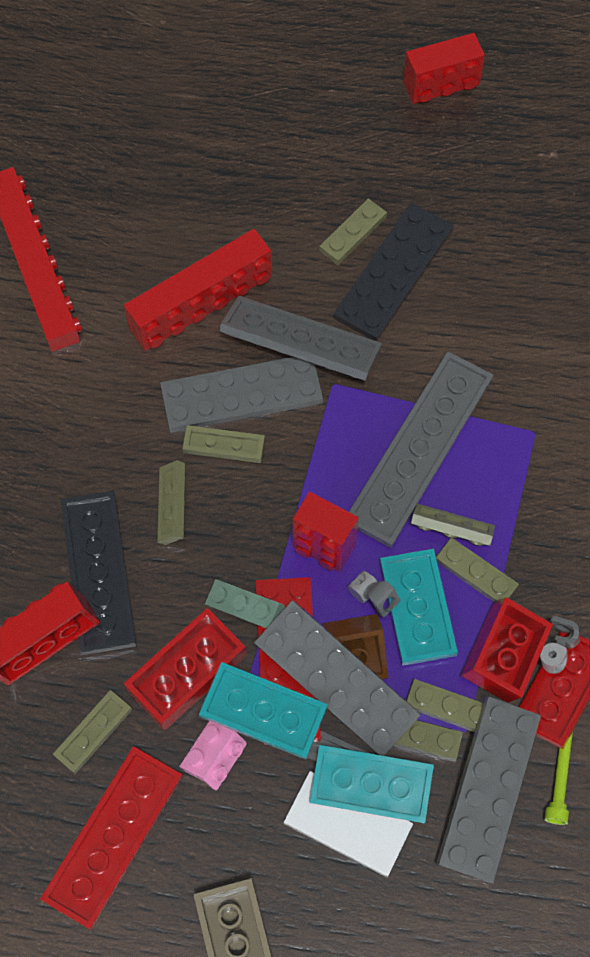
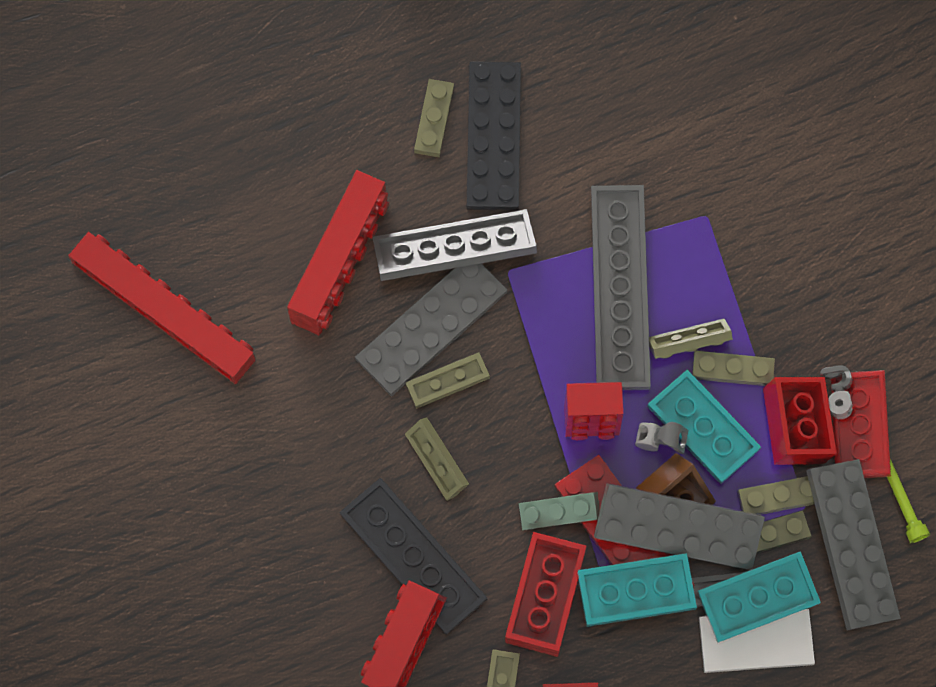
camera: 30 degrees left, 5 degrees up
(213, 754) = (611, 651): bright pink bracket -> none

